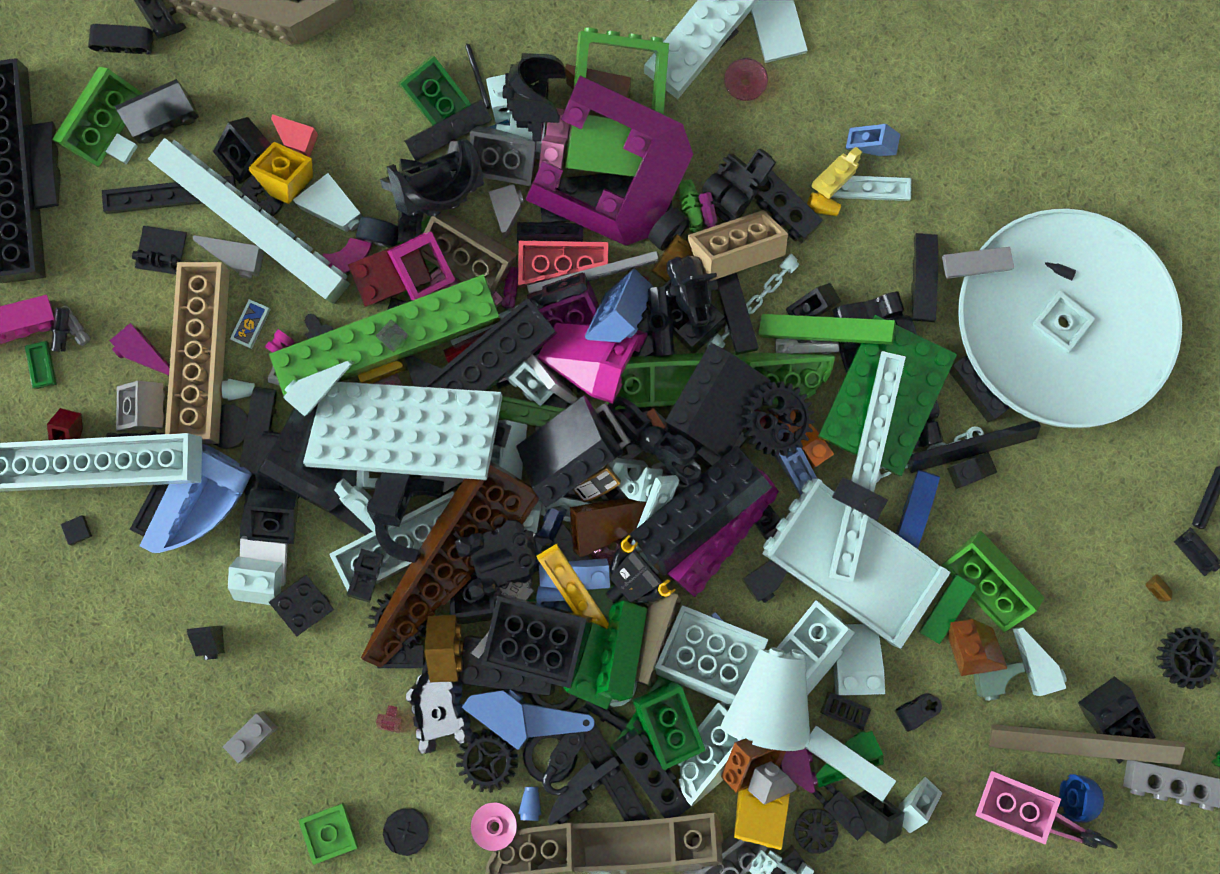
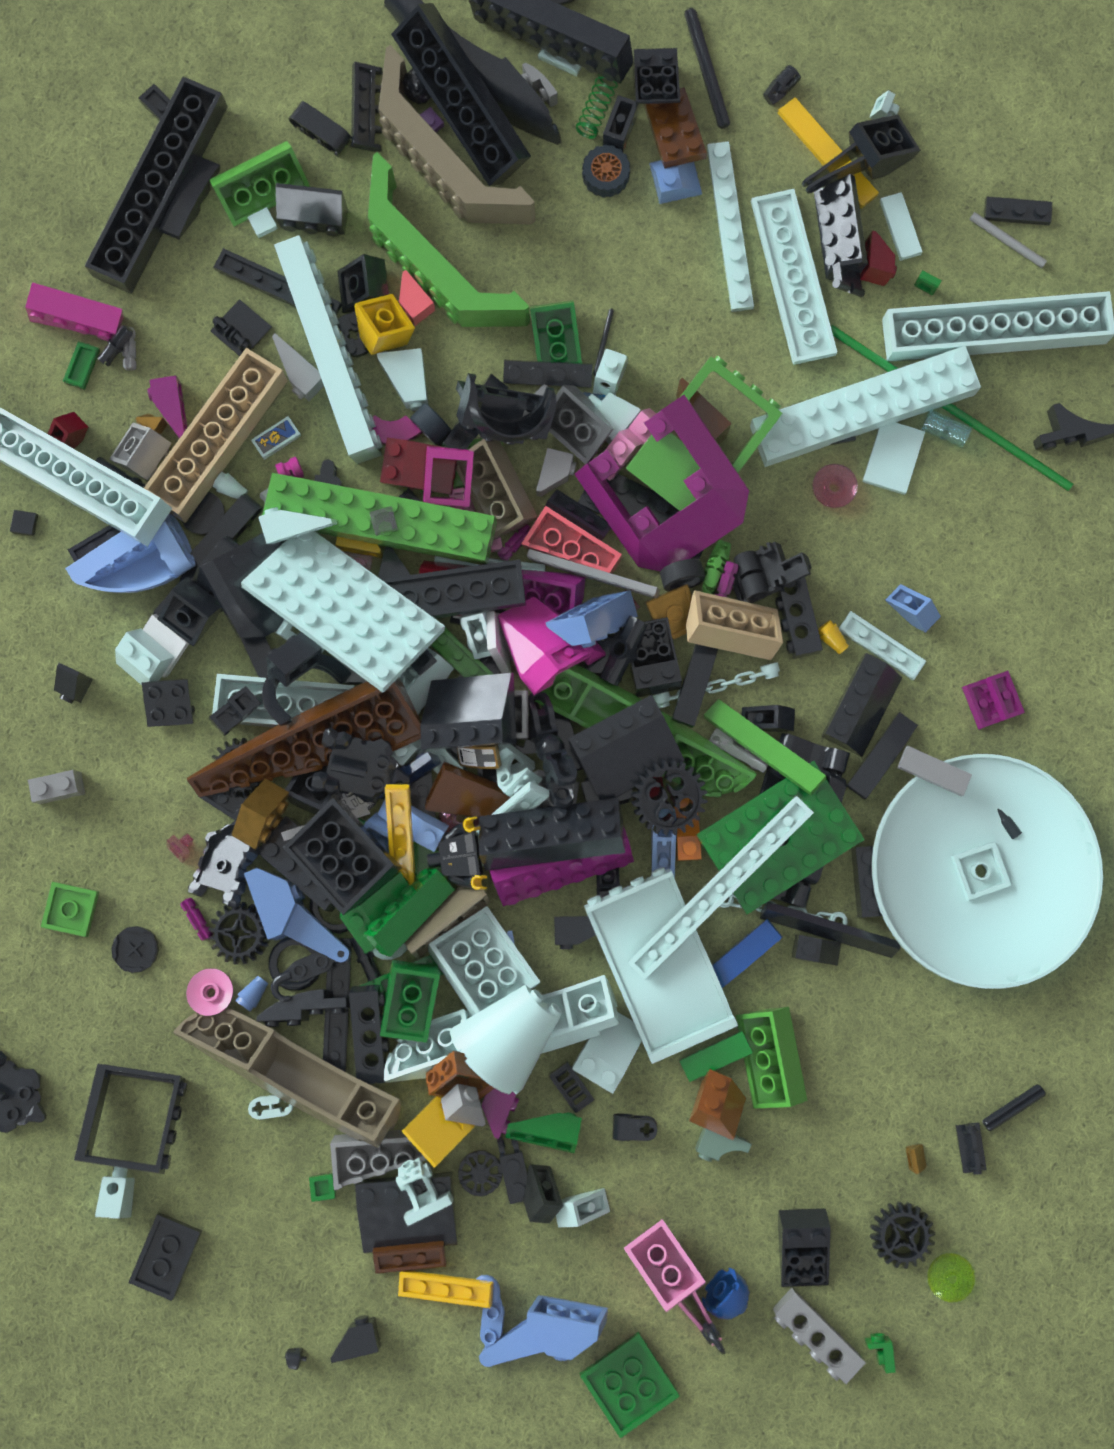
camera: 35 degrees right, 0 degrees up
(137, 374) = (158, 424): none -> pearl gold slope
(291, 99) = (429, 267): none -> bright green slope
(356, 501) = (266, 639): light aqua hinge -> none
(442, 772) = (196, 918): none -> magenta axle
(530, 102) = (629, 391): black piece -> none
(558, 290) = (552, 569): black hinge -> none
(656, 421) = (564, 732): copper tile -> none
(691, 288) = (667, 638): black piece -> none
(837, 173) = (862, 617): light yellow hinge -> none
(850, 764) = (542, 1133): light aqua tile -> none
(859, 498) = (694, 910): black slope -> none
(882, 245) = (862, 705): none -> black slope
(984, 176) = (993, 699): none -> magenta slope
(1041, 669) = (764, 1161): light aqua slope -> none
(1086, 744) = (762, 1251): dark tan tile -> none

